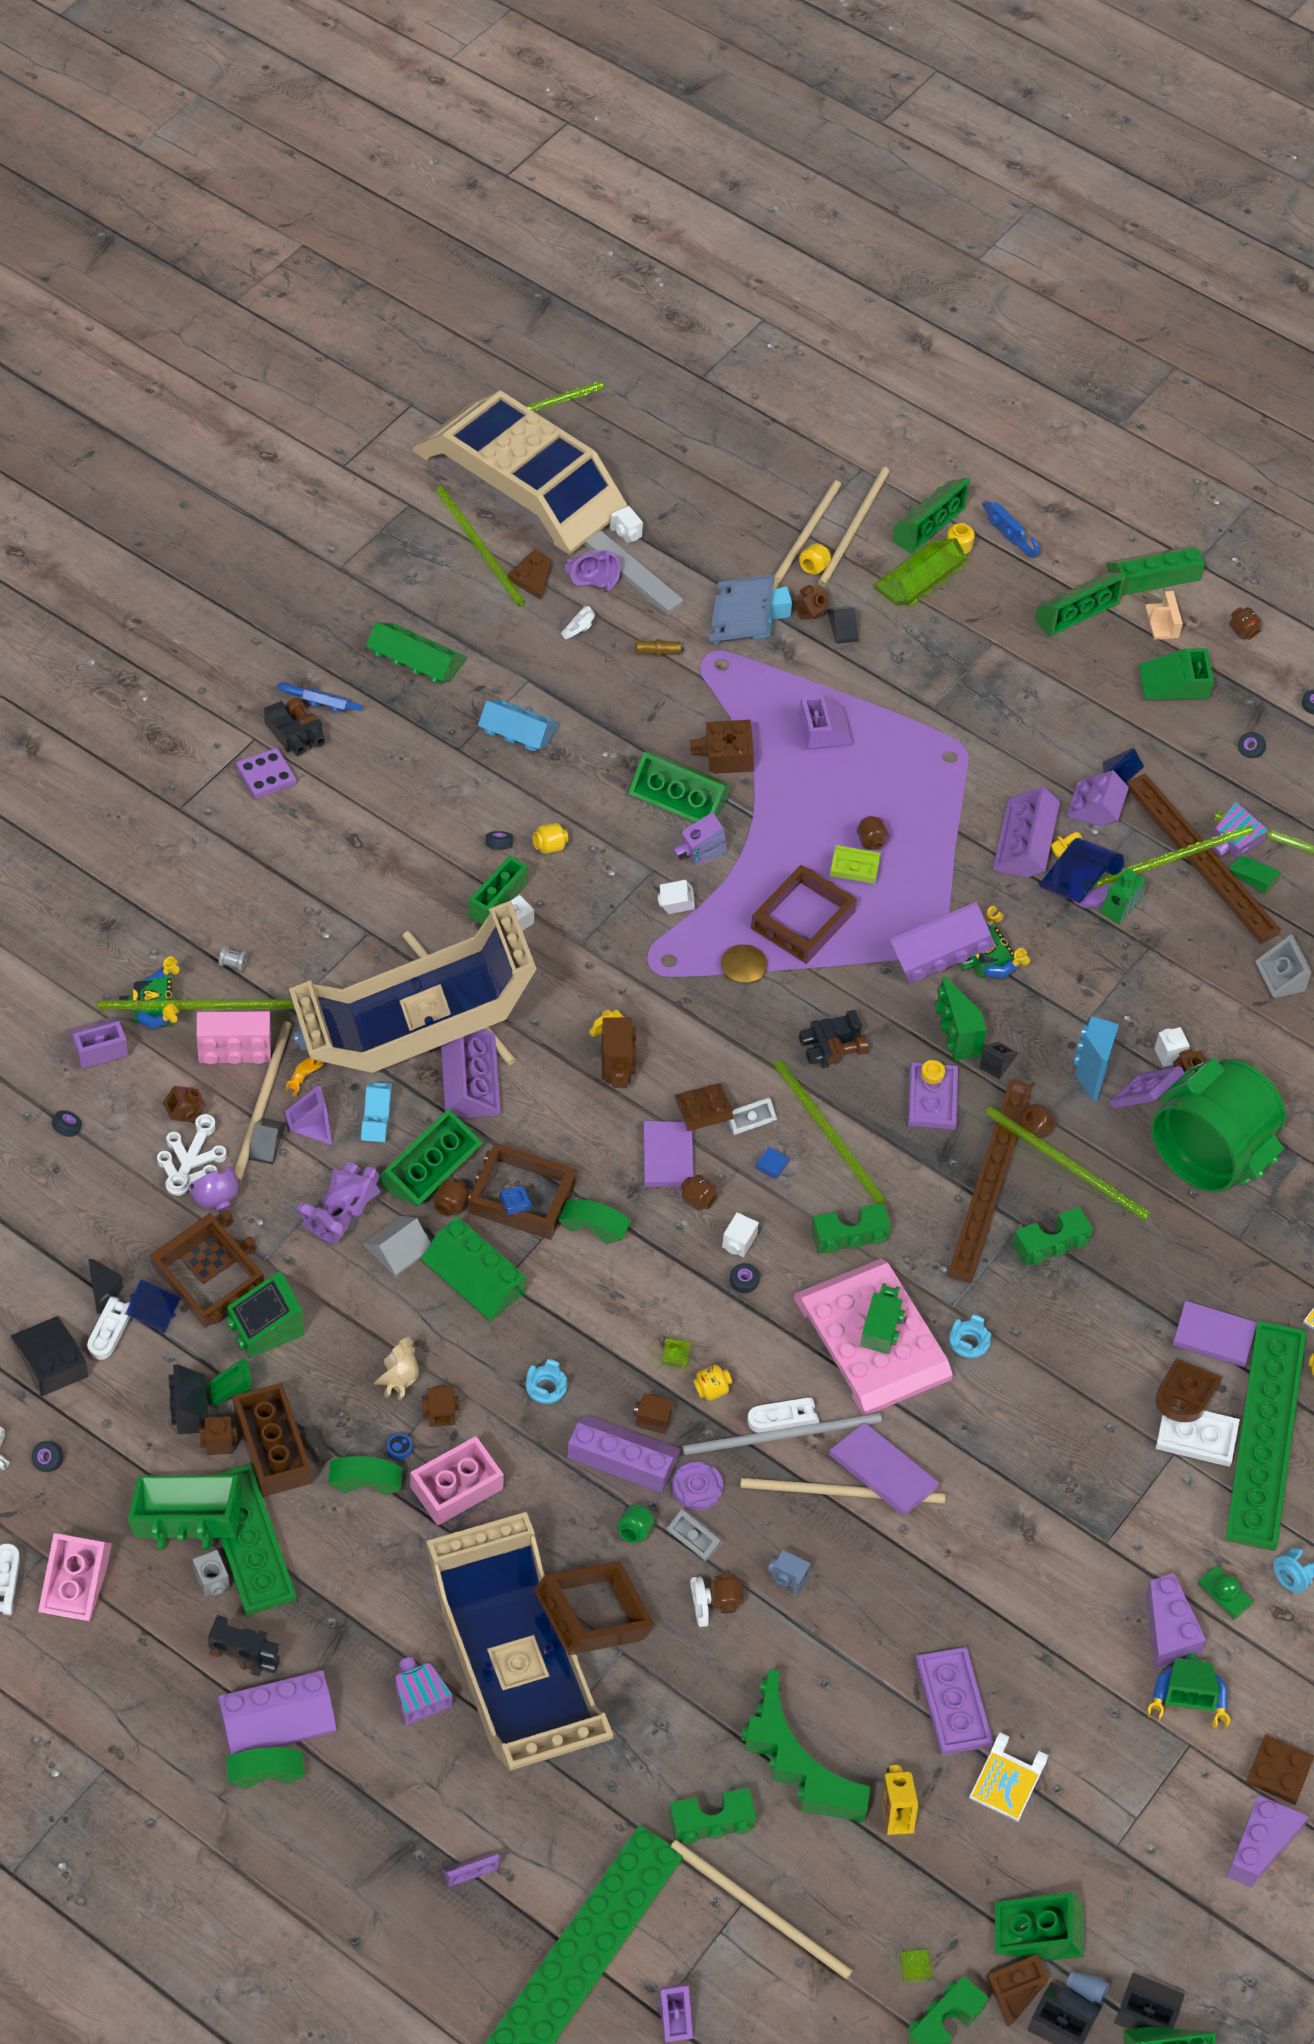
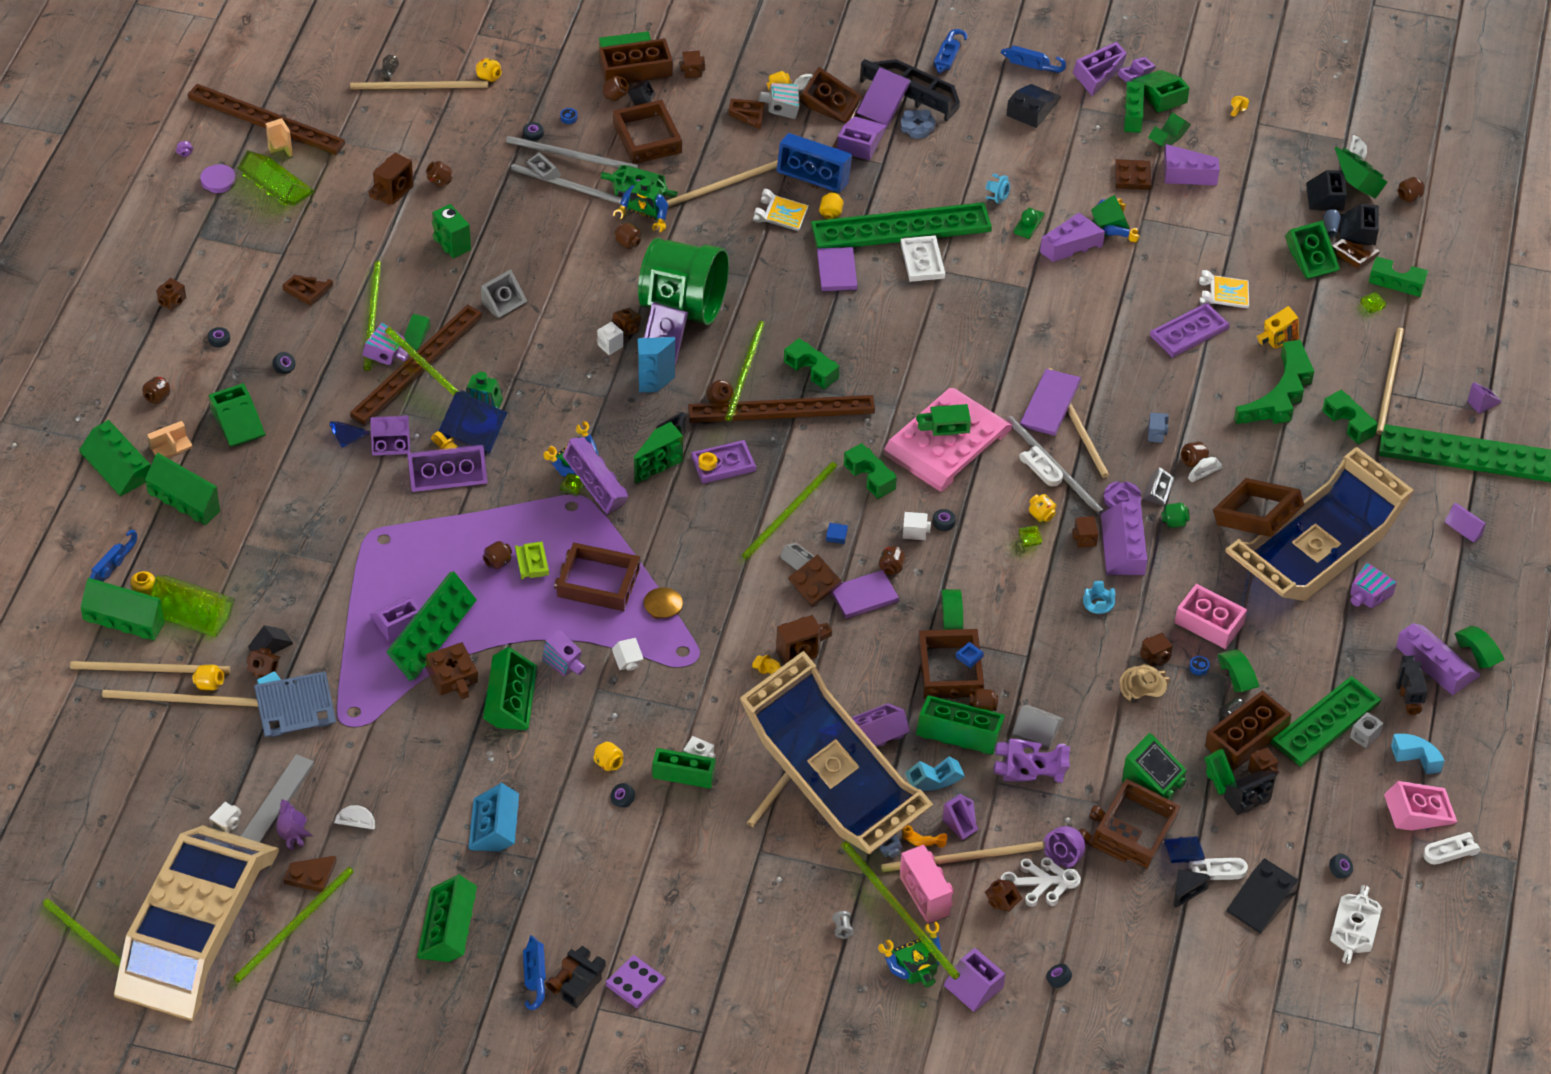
camera: 110 degrees left, 5 degrees down
(162, 1609) = (1412, 747): none -> medium azure brick
(185, 1508) = (1335, 754): green piece -> none
(266, 1140) = (995, 836): slope -> none
(474, 1269) = (1034, 669): green slope -> none
(658, 647) = (360, 755): pearl gold pin -> none
(795, 744) = (431, 625): none -> green plate
(831, 1039) = (708, 532): black hips -> none
(975, 1328) = (919, 380): medium azure piece -> none
(1187, 1389) = (896, 268): reddish brown tile -> none

